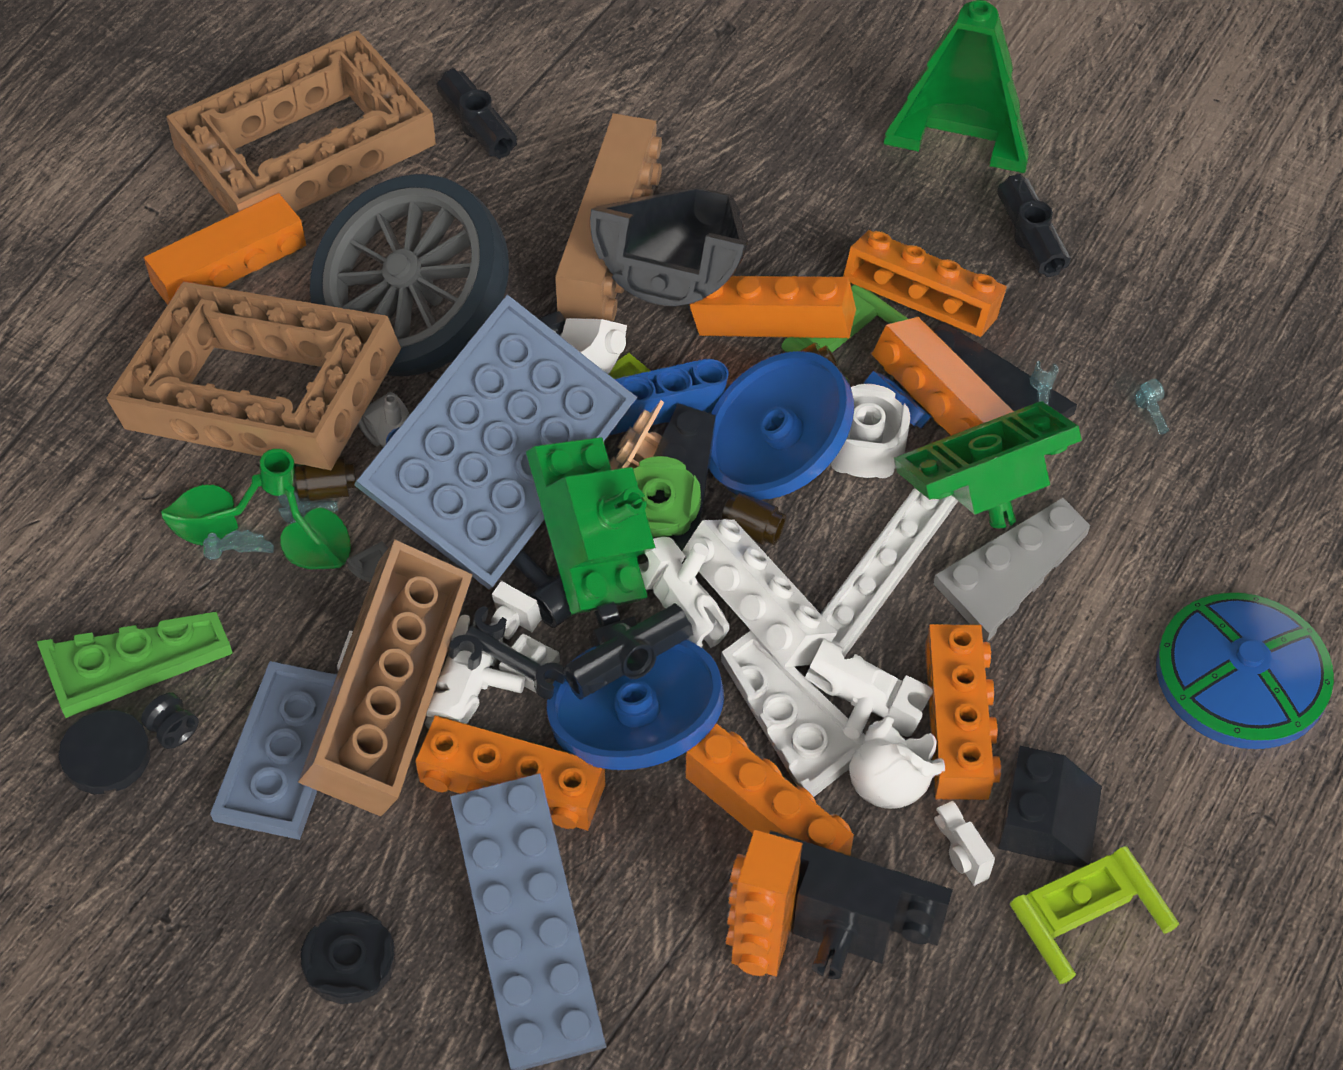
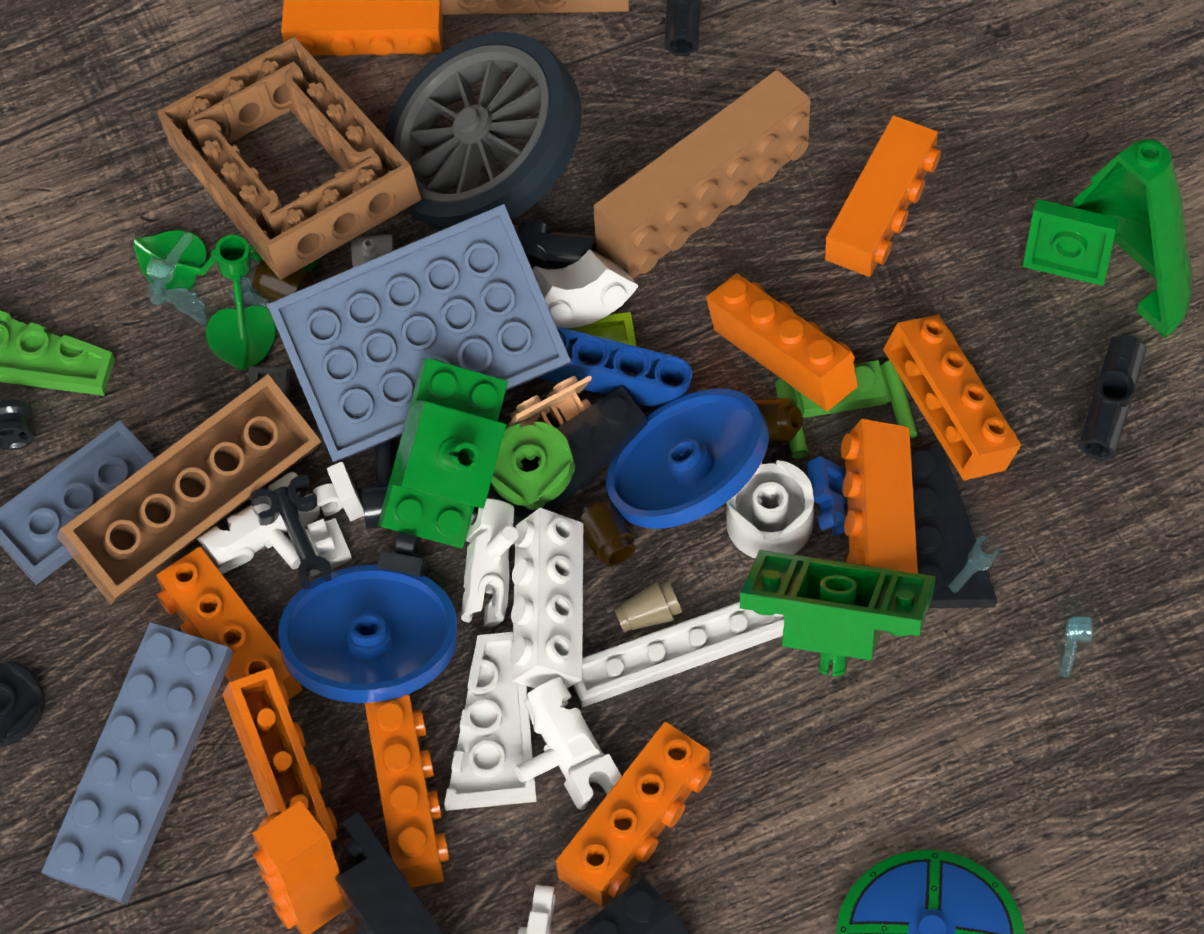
camera: 40 degrees right, 5 degrees up
(206, 523) = (165, 269): none -> clear light blue hand
(627, 651) = (389, 586): black piece -> none
(656, 841) = (276, 747): none -> orange brick
(670, 244) = (725, 226): black cone -> none
(752, 172) = (882, 196): none -> orange brick
(835, 552) = (649, 607): none -> dark tan cone
(893, 769) = (528, 823): white hair -> none
(918, 134) = (1070, 242): none -> green plate
(1002, 573) = (791, 715): light grey wing -> none

